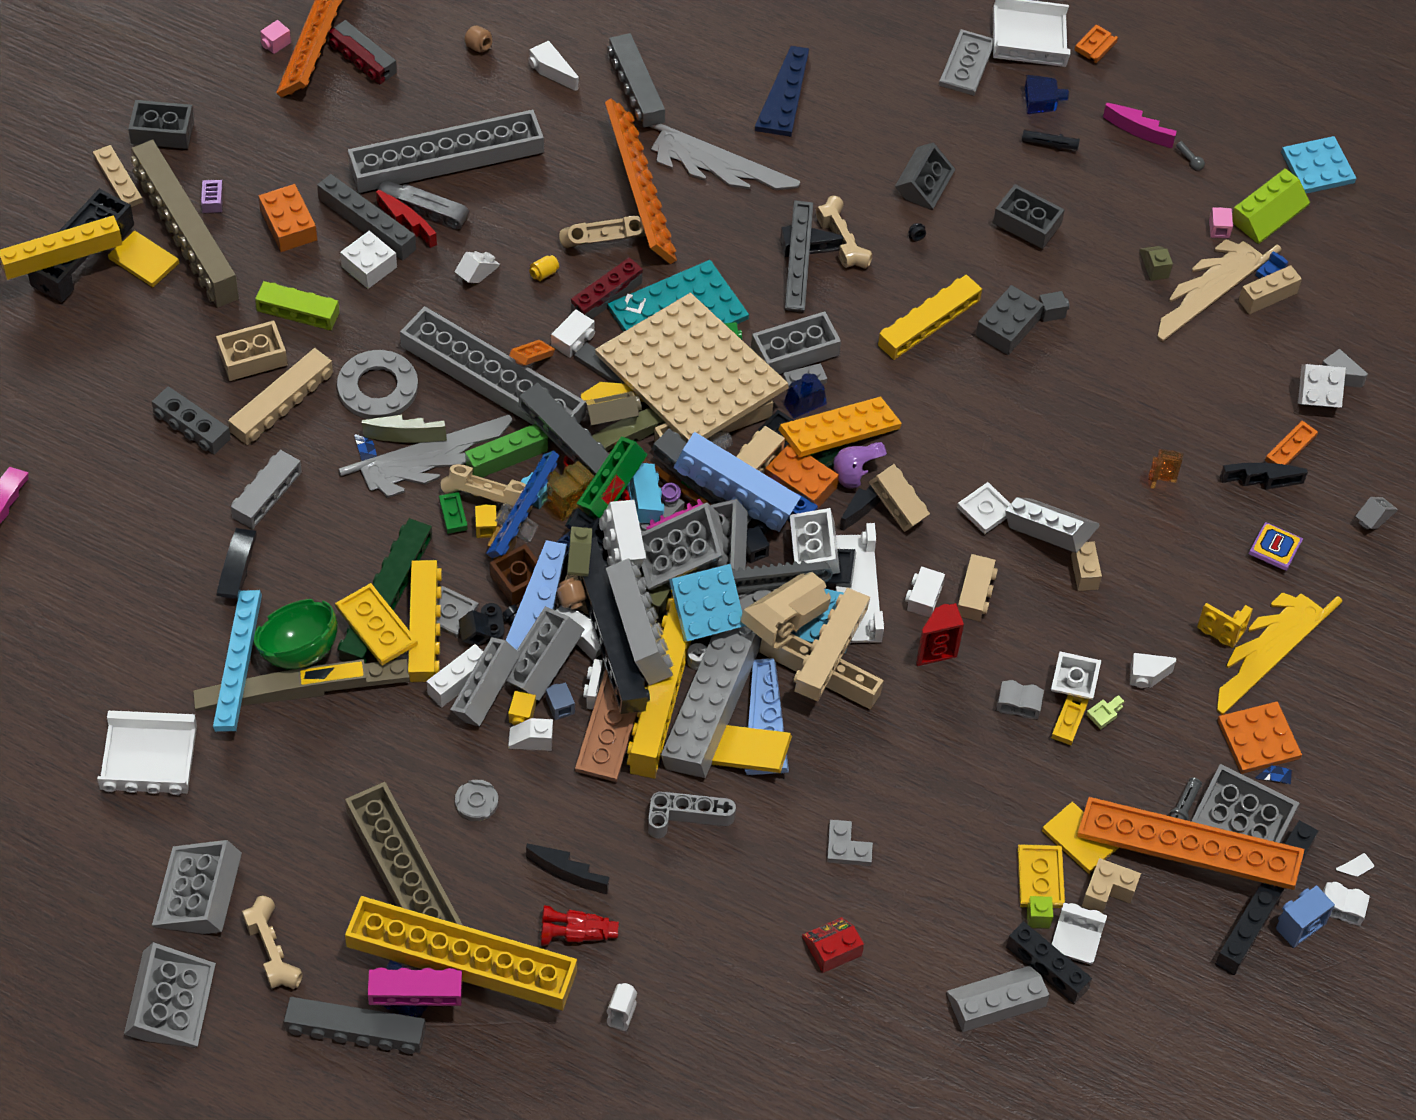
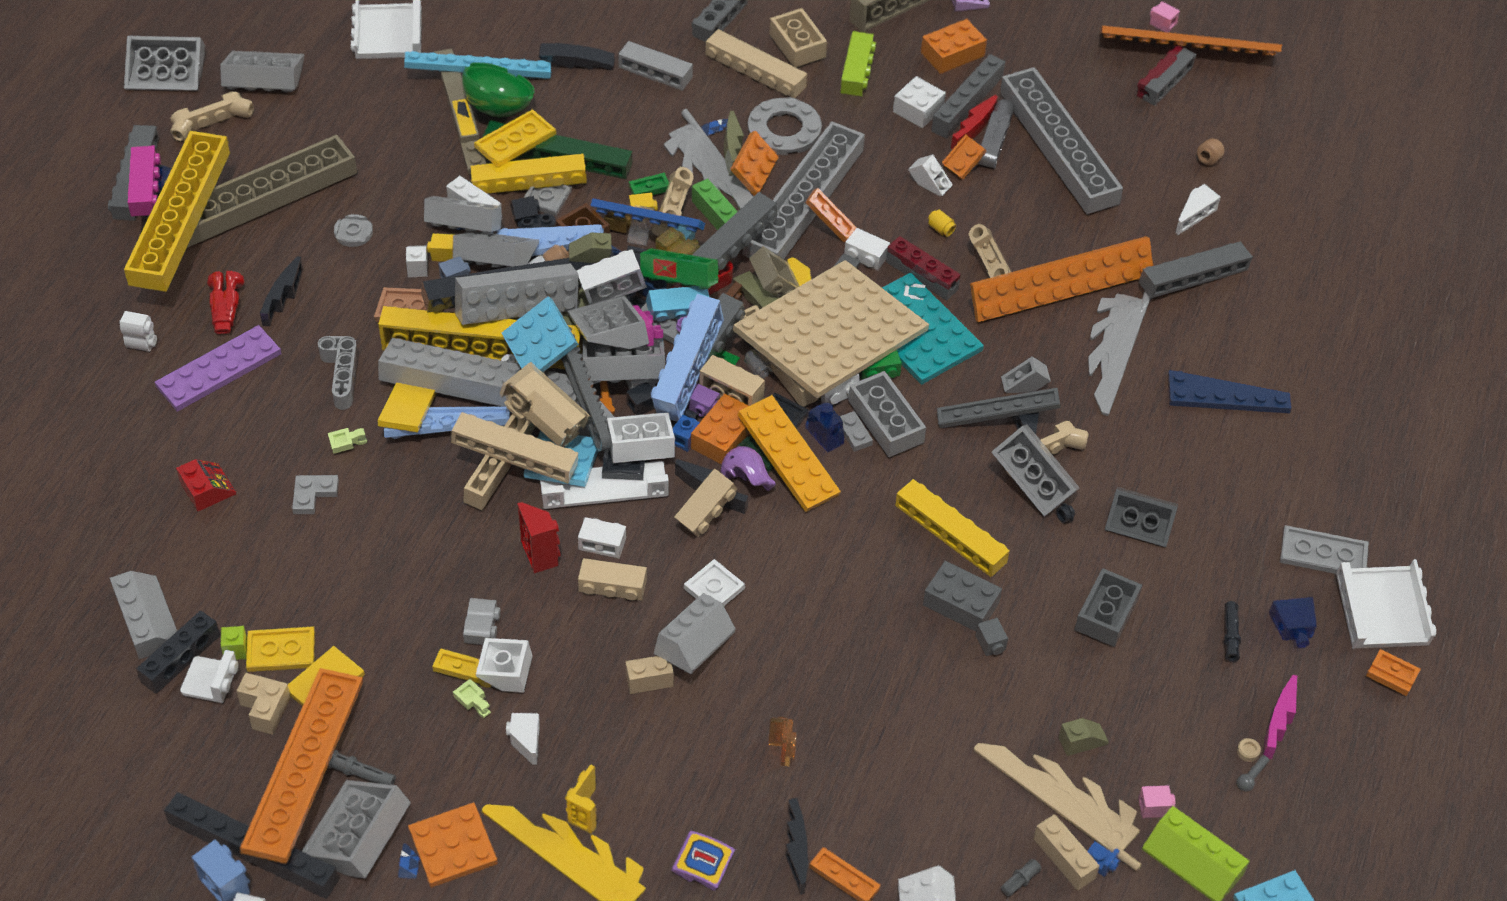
camera: 85 degrees right, 5 degrees down
(442, 410) = (754, 163): none -> orange plate
(457, 233) = (964, 157): none -> orange plate
(668, 936) = (217, 368): none -> medium lavender plate
(756, 234) = (1026, 377): none -> light grey slope
(783, 812) = (343, 439): none -> yellowish green plate
(878, 238) = (1035, 470): none -> light grey slope
(1167, 154) = (1248, 750): none -> tan tile
(1291, 325) = (1021, 877): none -> dark grey axle

